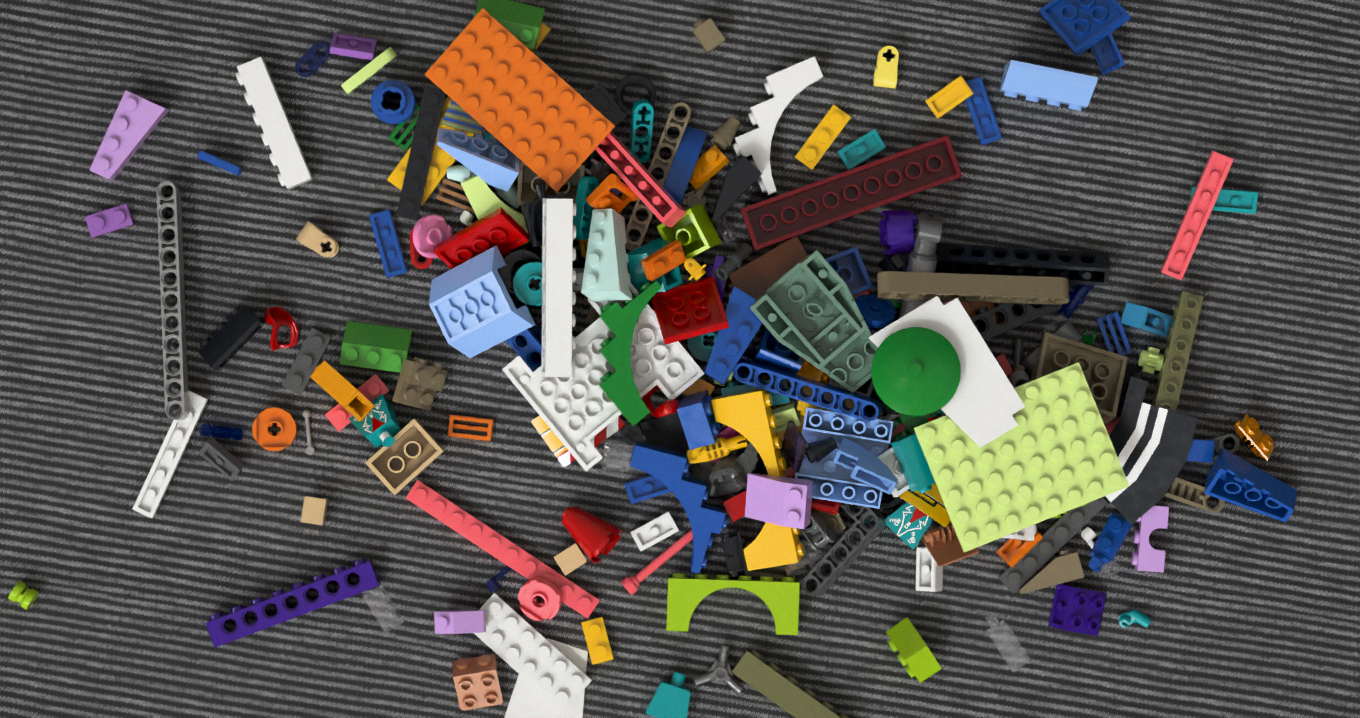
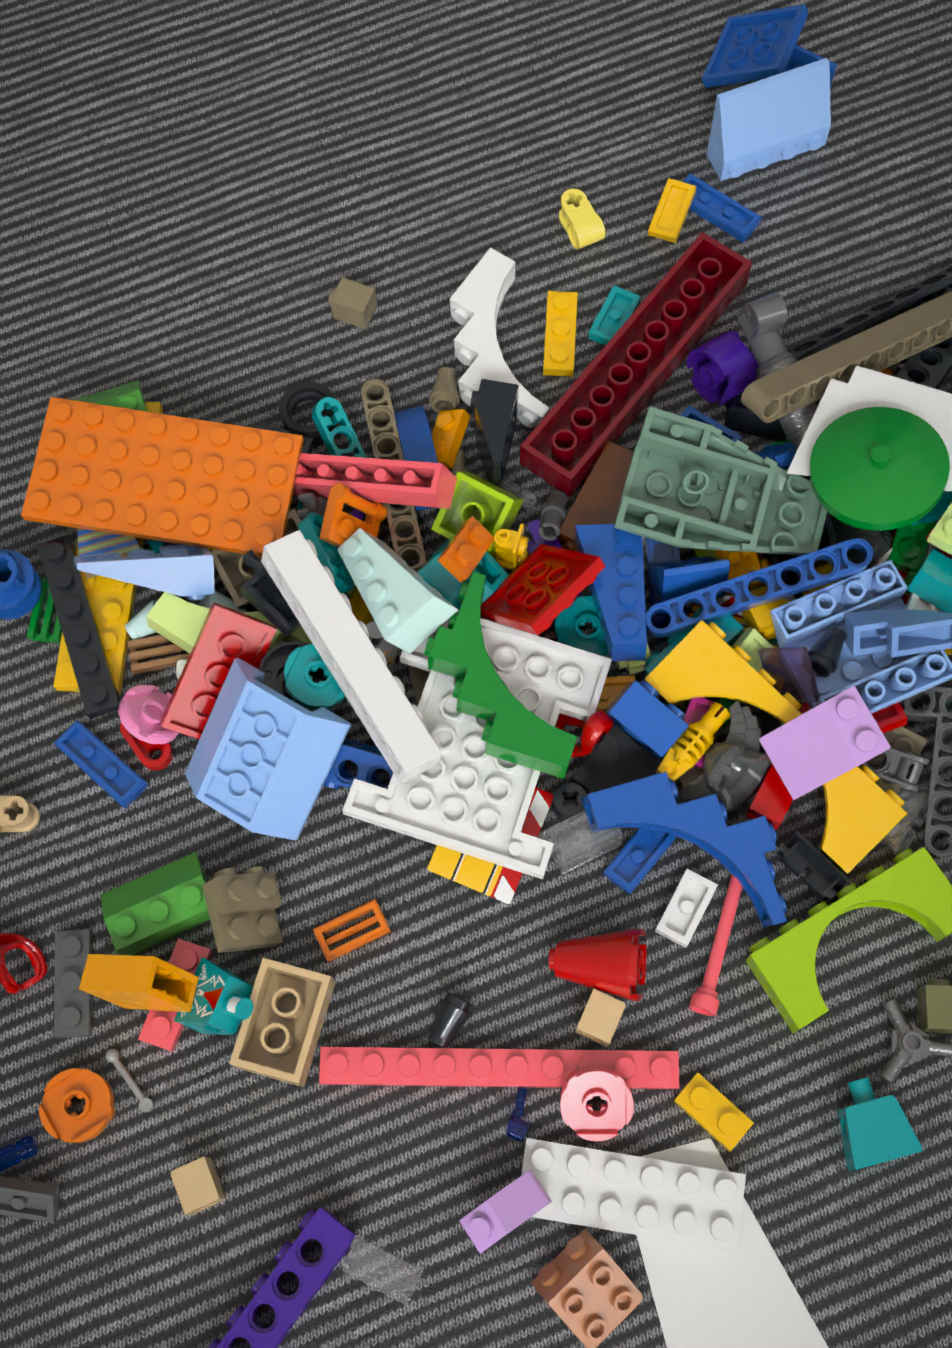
camera: 25 degrees left, 20 degrees down
(492, 508) = (449, 1018): none -> black cone

